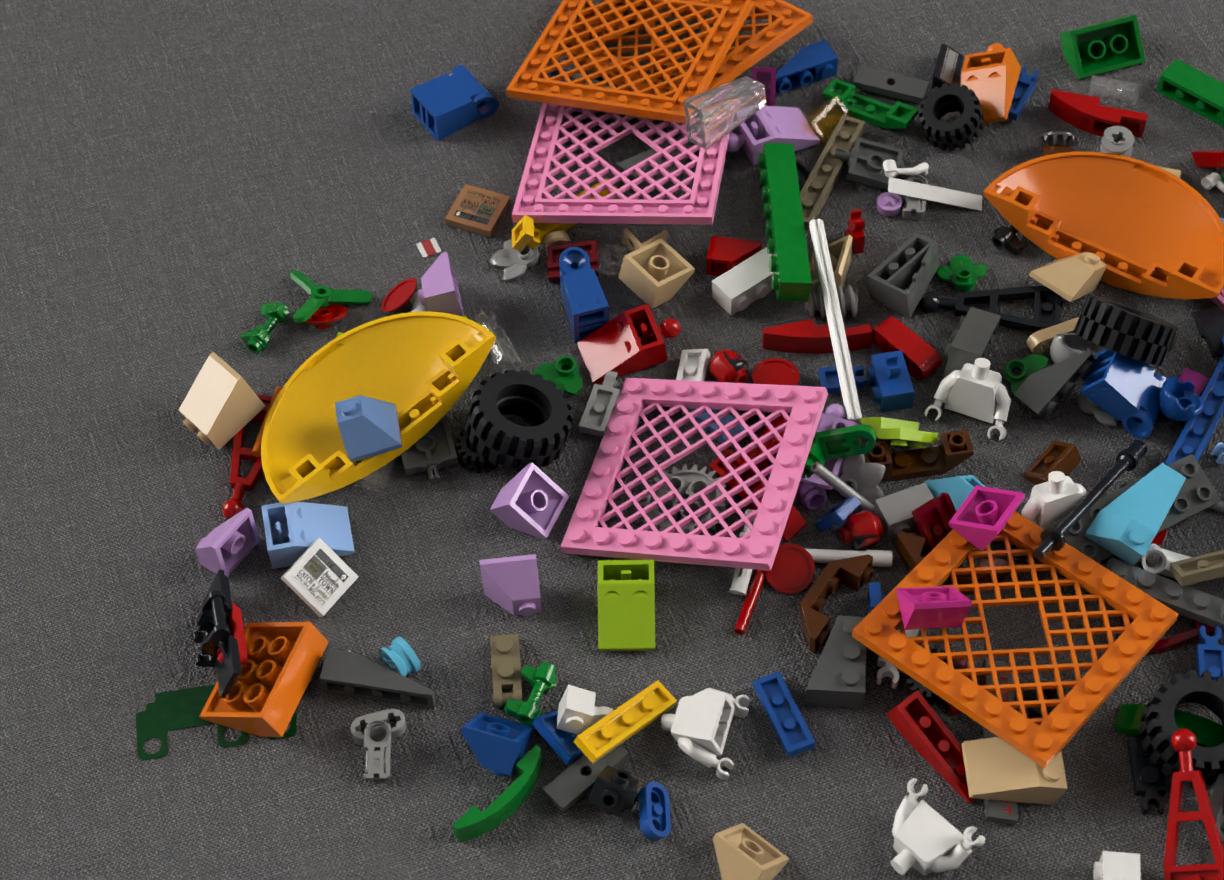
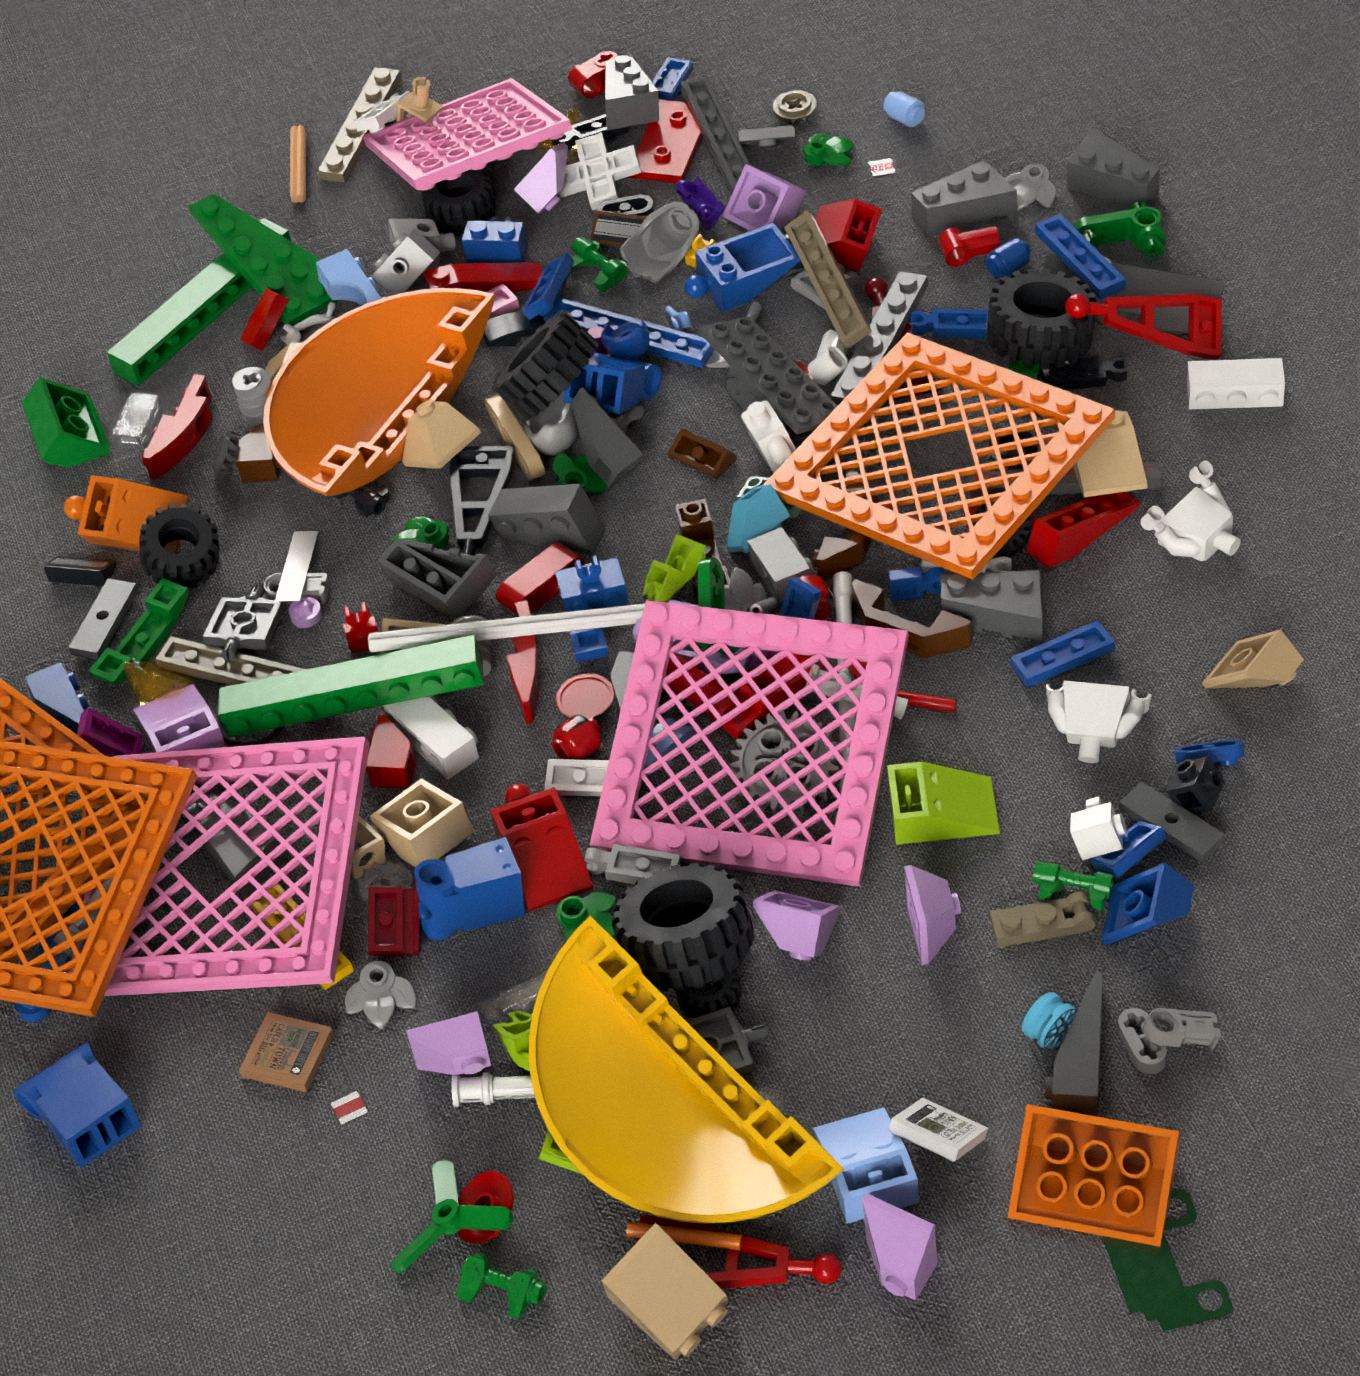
camera: 90 degrees left, 5 degrees down
(223, 634) = (1045, 1223): black piece -> none
(368, 427) = (711, 1089): medium blue slope -> none
(399, 295) = (449, 1116): red piece -> none
(476, 823) = (1229, 891): green slope -> none
(525, 234) = (355, 968): yellow tile -> none
(556, 238) = (356, 945): tan tile -> none
(625, 721) = (1105, 781): yellow plate -> none
(722, 109) = (175, 741): clear slope -> none
(891, 169) = (261, 598): white piece -> none
(932, 607) = (937, 498): dark pink slope -> none
(933, 519) = (801, 526): dark red plate -> none
(975, 393) = (616, 507): white torso -> none
(985, 514) = (810, 461): dark pink slope -> none
(1126, 460) = (699, 388): black bar -> none
(1135, 516) = (799, 364): medium azure wedge -> none

